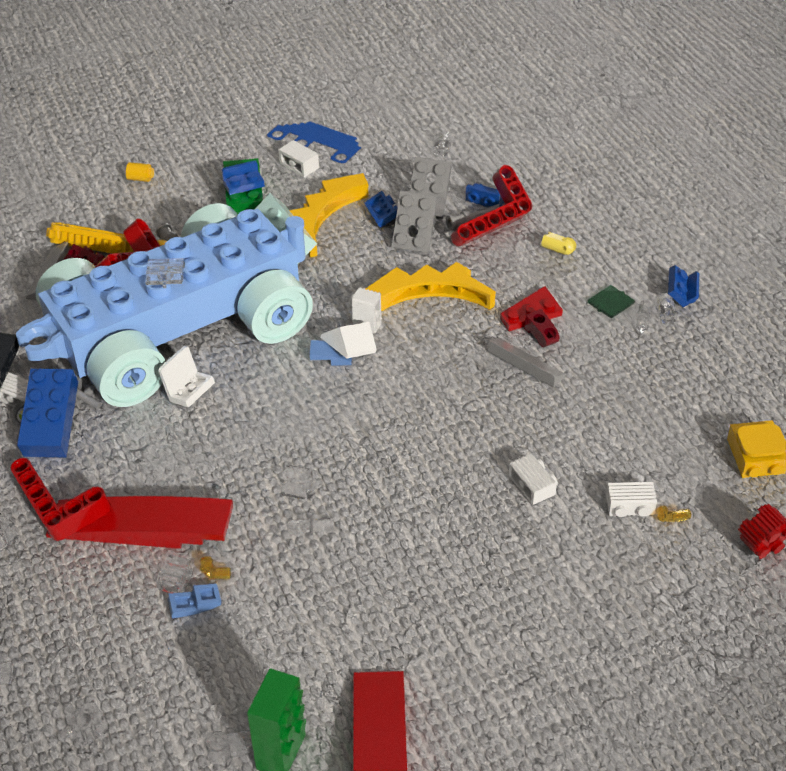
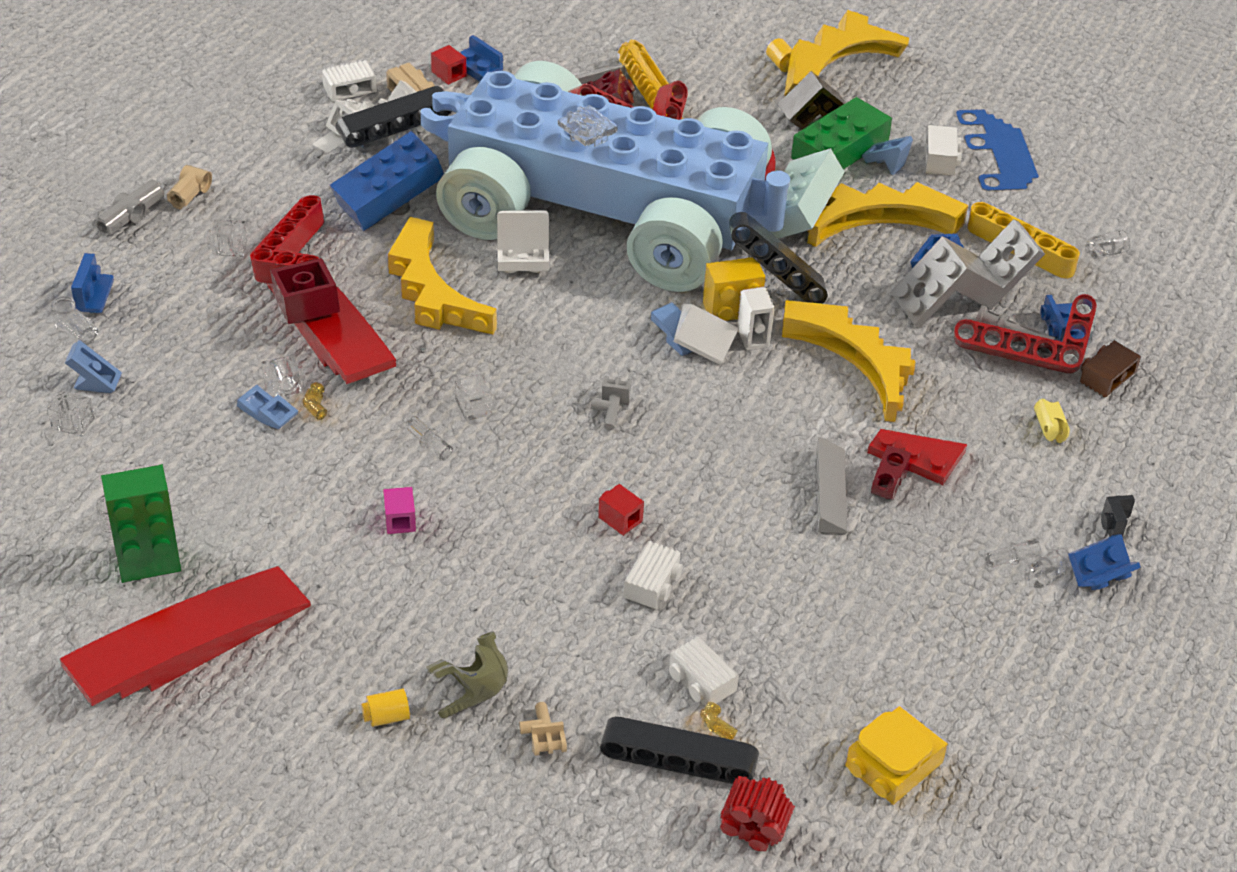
camera: 50 degrees right, 0 degrees up
(54, 688) = (93, 370): none -> medium blue slope
(123, 511) = (305, 291): none -> dark red brick
(161, 451) = (433, 298): none -> yellow arch
(164, 156) = (851, 37): none -> yellow arch
(201, 182) = (809, 99): none -> brick
(242, 177) = (838, 120): blue bracket -> none
(281, 175) = (891, 152): none -> medium blue slope
(331, 305) = (724, 283): none -> yellow brick
(337, 268) = (774, 249): none -> black beam
(361, 409) = (613, 393): none -> light grey arm
(365, 575) = (399, 510): none -> dark pink brick
(395, 172) = (1059, 256): none -> yellow beam
(464, 463) = (621, 509): none -> red brick
(539, 674) = (386, 707): none -> yellow brick
(541, 197) = (1109, 368): none -> reddish brown brick
(552, 611) = (480, 680): none -> olive piece
(611, 301) = (1012, 516): clear green piece -> none
(630, 602) = (545, 735): none -> tan arm
(651, 262) = (1116, 512): none -> black bracket
(683, 544) = (678, 750): none -> black beam

